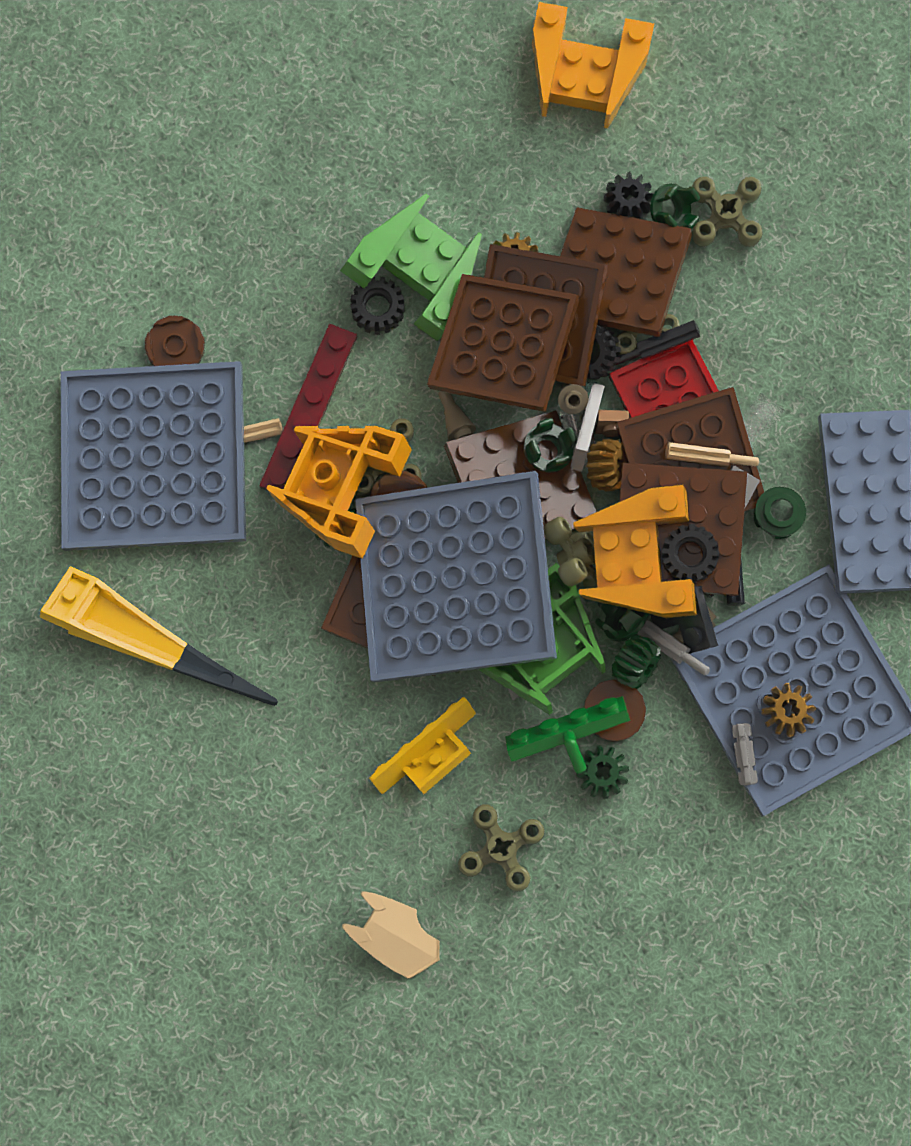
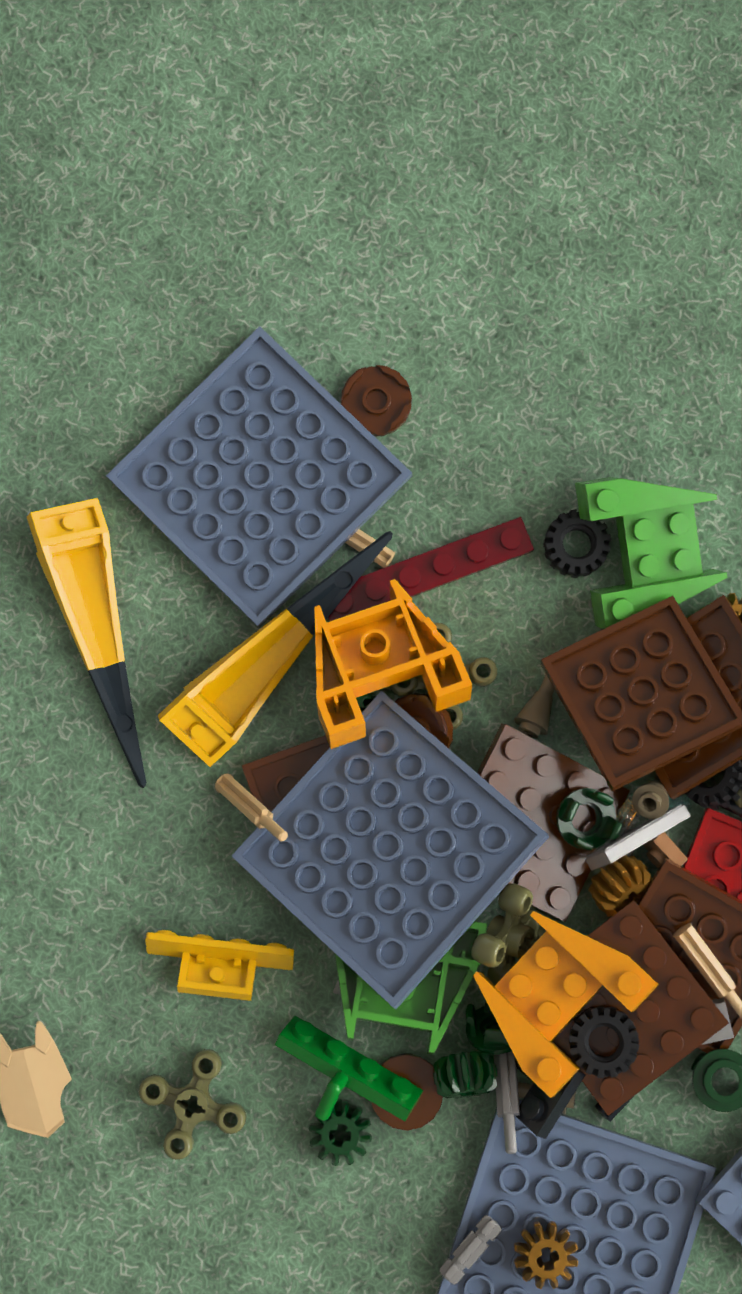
camera: 45 degrees right, 5 degrees up
(270, 597) = (230, 693): none -> yellow plate
(349, 643) = (249, 805): none -> tan axle

